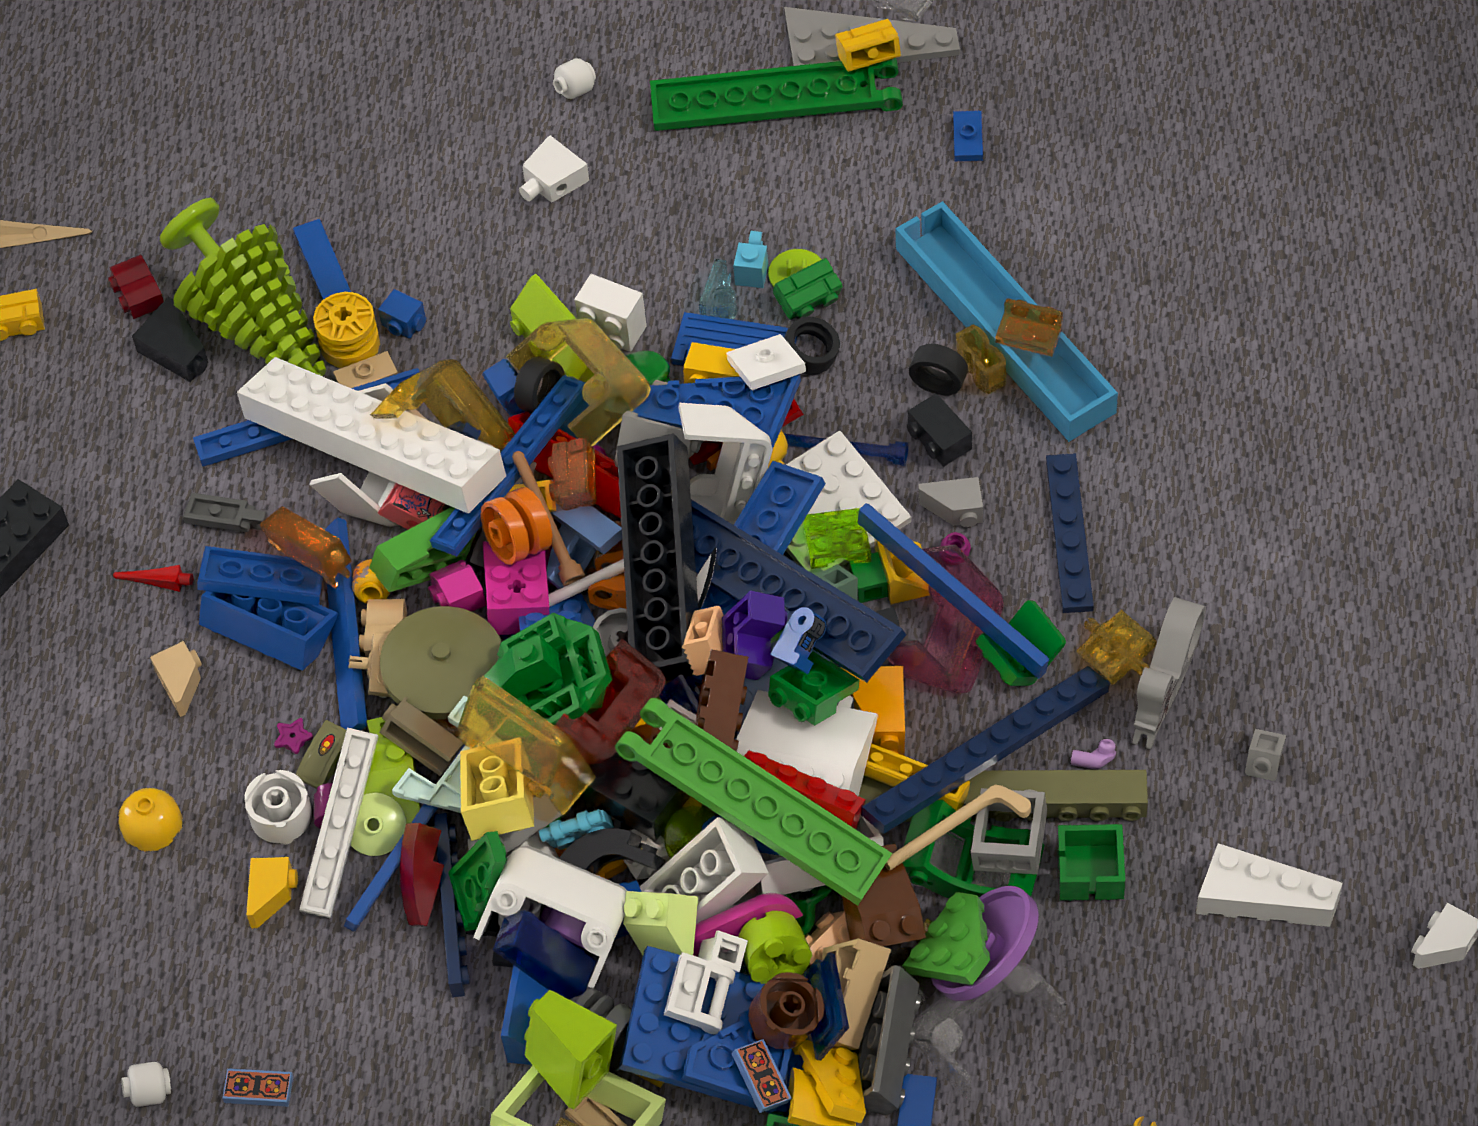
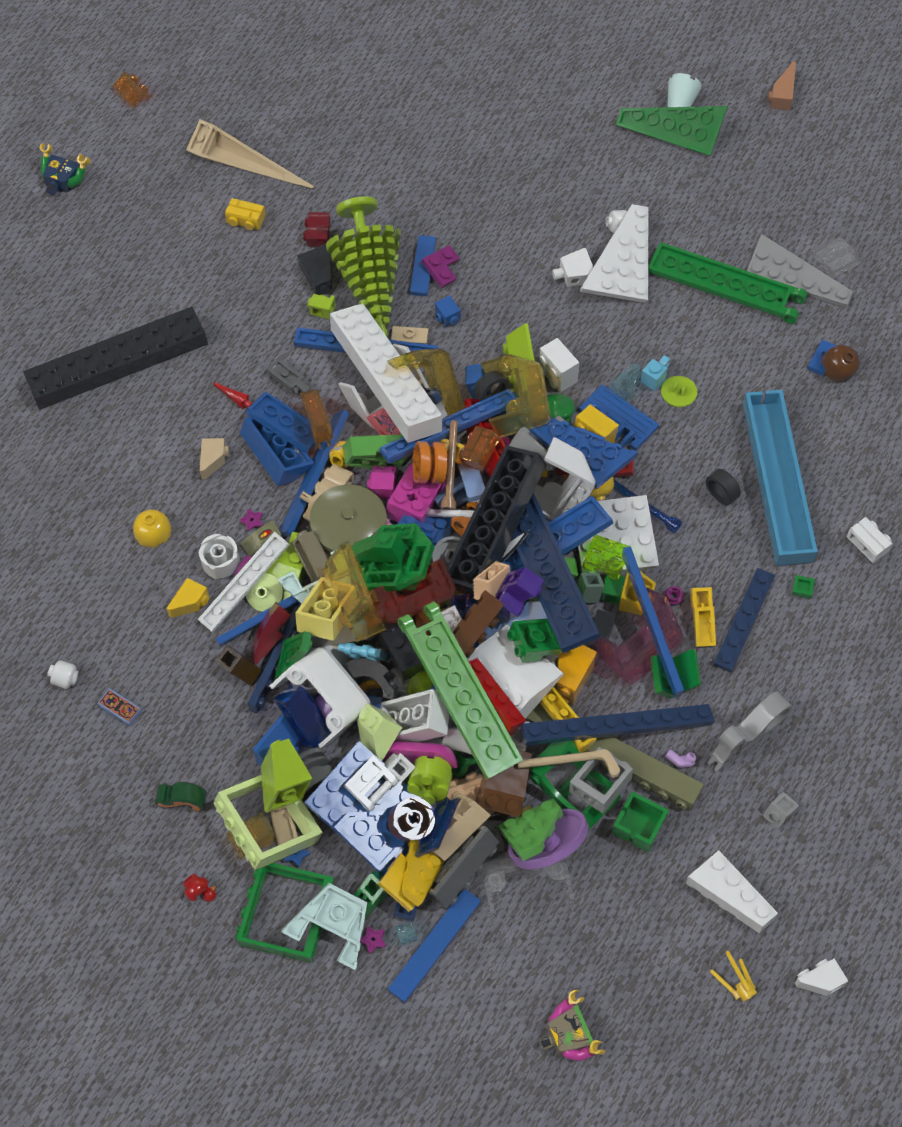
camera: 25 degrees right, 5 degrees up
(209, 391) = (321, 305): none -> lime brick
(346, 329) = (411, 305): yellow wheel -> none
(348, 258) = (438, 266): none -> magenta plate
(402, 940) = (239, 665): none -> dark brown slope
(617, 135) = (624, 262): none -> white wing
(761, 1076) = (377, 849): tile -> none
(766, 362) = (622, 436): white plate -> none
(799, 639) = (539, 608): leg -> none
(808, 289) = (677, 404): green brick -> none
(824, 332) = (669, 428): black tyre -> none
(868, 45) = (793, 278): yellow brick -> none
(939, 430) = (703, 522): black brick -> none
(953, 500) = (688, 568): light grey slope -> none
(983, 360) = (751, 492): clear yellow brick -> none
(997, 130) = (840, 363): none -> reddish brown cylinder
(1012, 553) = (703, 616): none -> yellow slope
(1030, 327) = (787, 488): clear orange bracket -> none
(1116, 646) = (729, 702): clear yellow plate -> none
(1122, 451) = (803, 586): none -> green plate
(1174, 346) = (869, 539): none -> white brick
(1354, 1004) = (745, 988): none -> yellow plant

